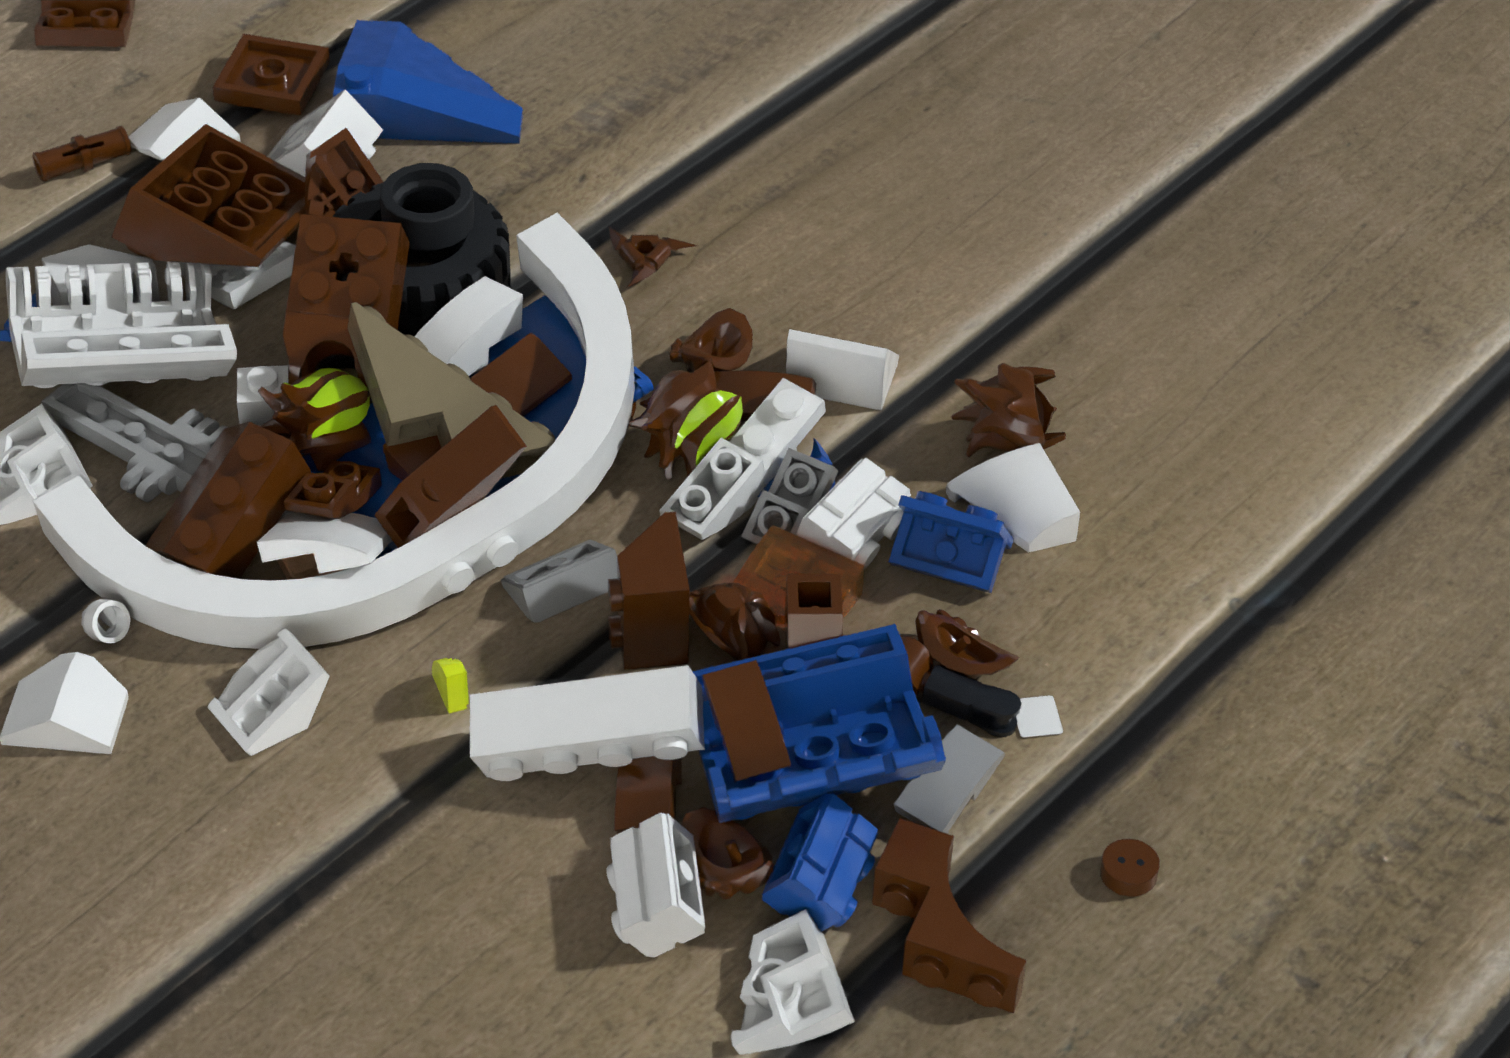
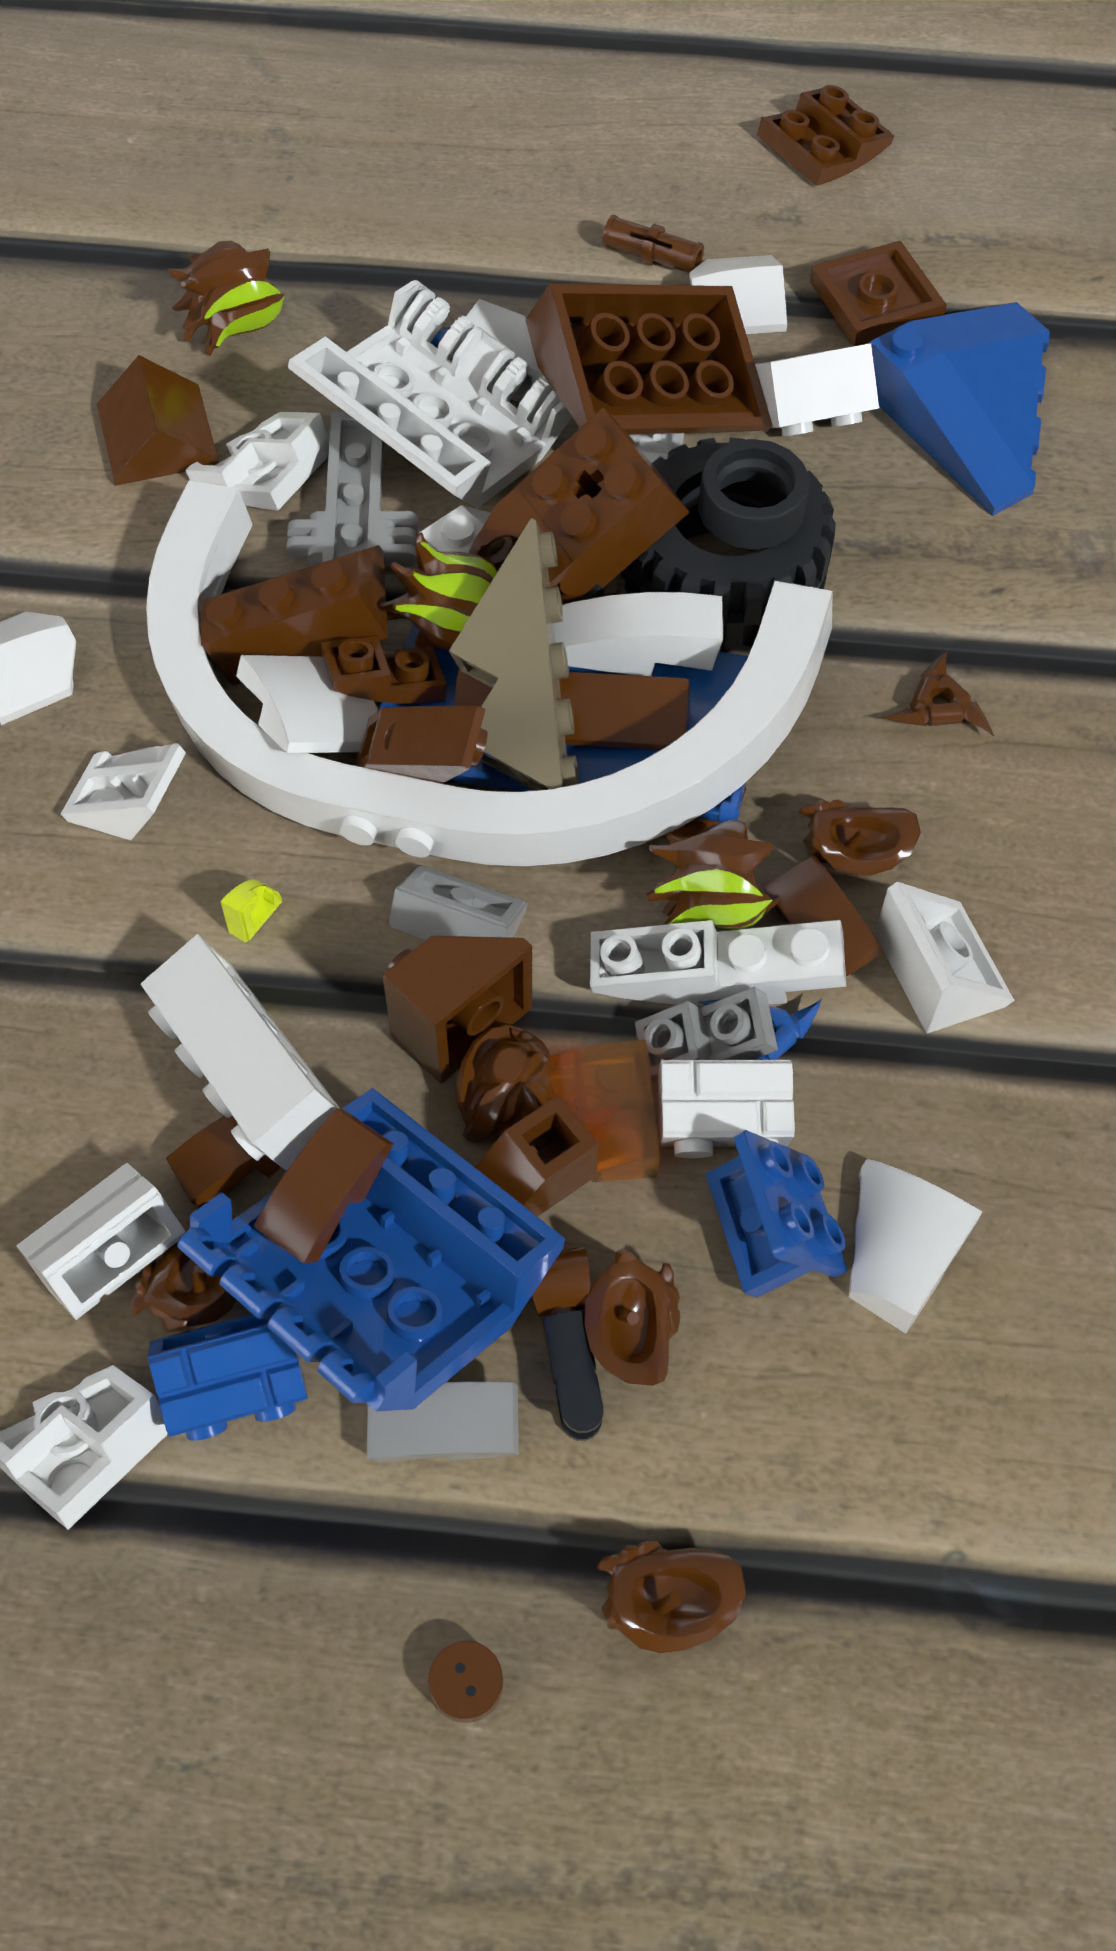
camera: 55 degrees right, 15 degrees up
(112, 614) = (118, 621): white hinge -> none
(336, 173) = (773, 410): reddish brown slope -> none
(942, 943) = (287, 1471): reddish brown arch -> none
(1008, 410) = (1001, 1155): reddish brown hair -> none
(1038, 717) = (620, 1450): white sticker -> none
(1159, 730) = (671, 1596): none -> reddish brown hat

